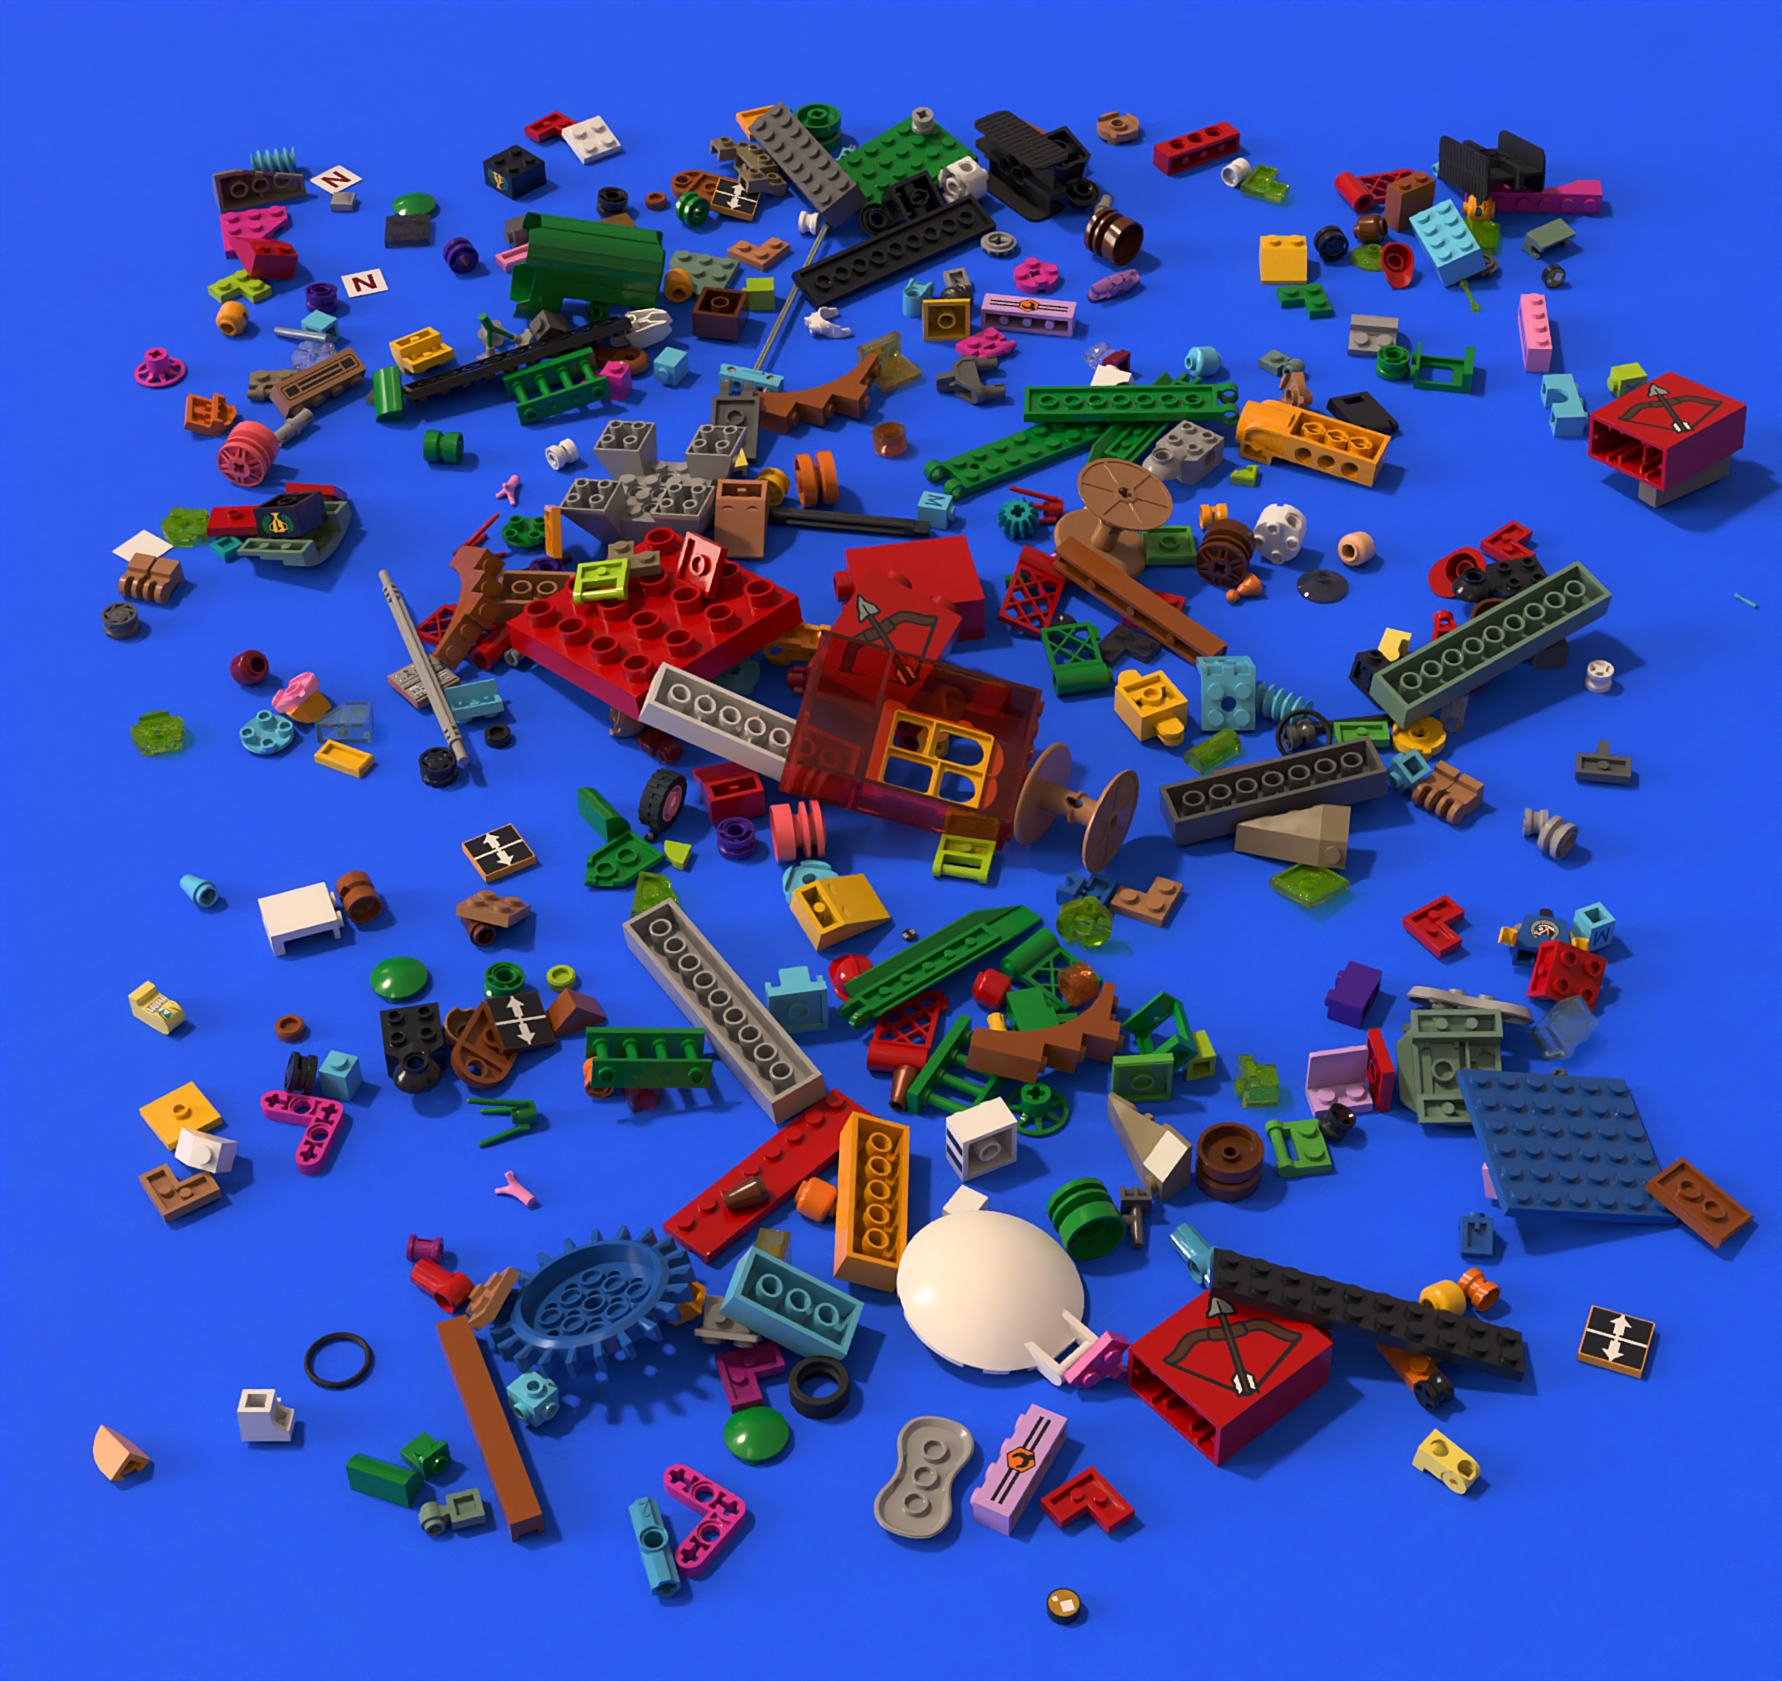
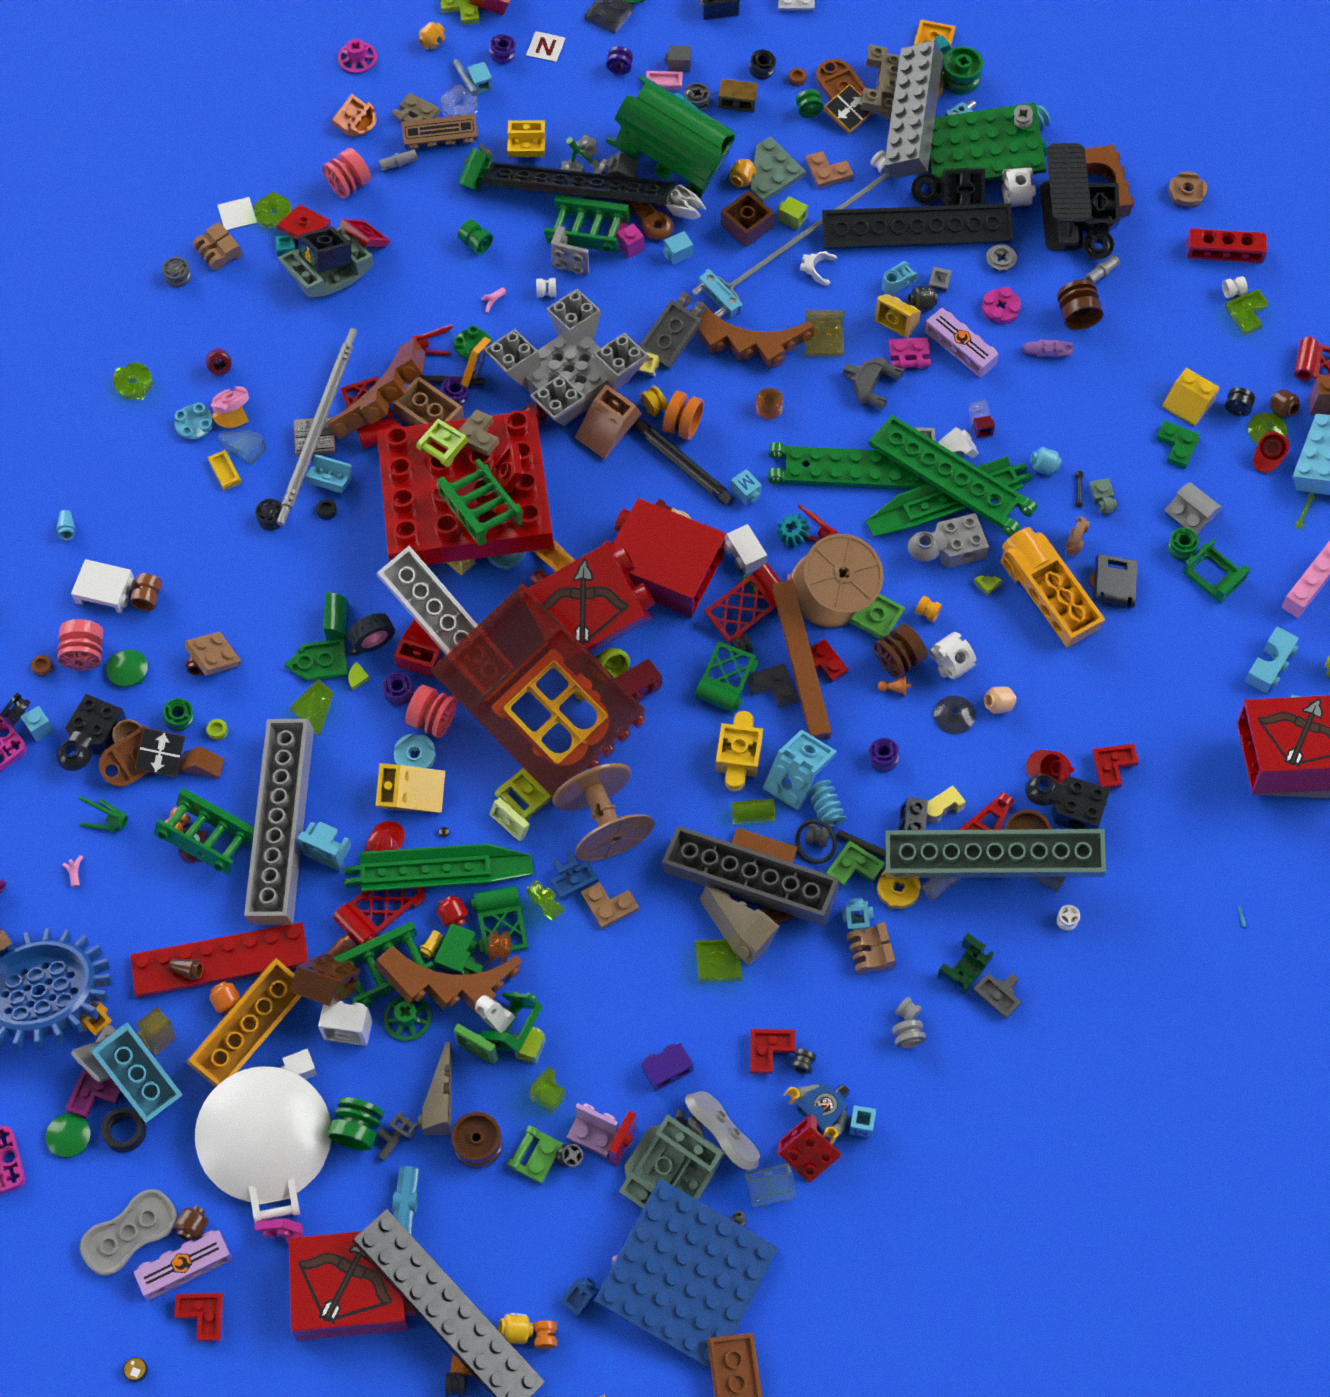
camera: 35 degrees right, 20 degrees up
(327, 974) = (80, 644): none -> coral wheel
(498, 853) = (255, 606): tile -> none
(563, 414) = (568, 256): none -> light grey bracket
(697, 614) = (468, 516): none -> green fence
(930, 1097) = (325, 979): none -> reddish brown piece
(972, 882) = (509, 819): none -> yellowish green plate
(989, 1425) = (191, 1223): none -> reddish brown head
(991, 555) = (746, 549): none -> white brick
(1132, 1037) = (493, 1013): none -> white leg
(1241, 362) = (1079, 475): none -> black hinge
(1292, 642) = (884, 746): none -> dark purple wheel
(1481, 916) = (803, 1061): none -> pearl dark grey wheel
(1549, 757) = (968, 967): none -> dark green piece

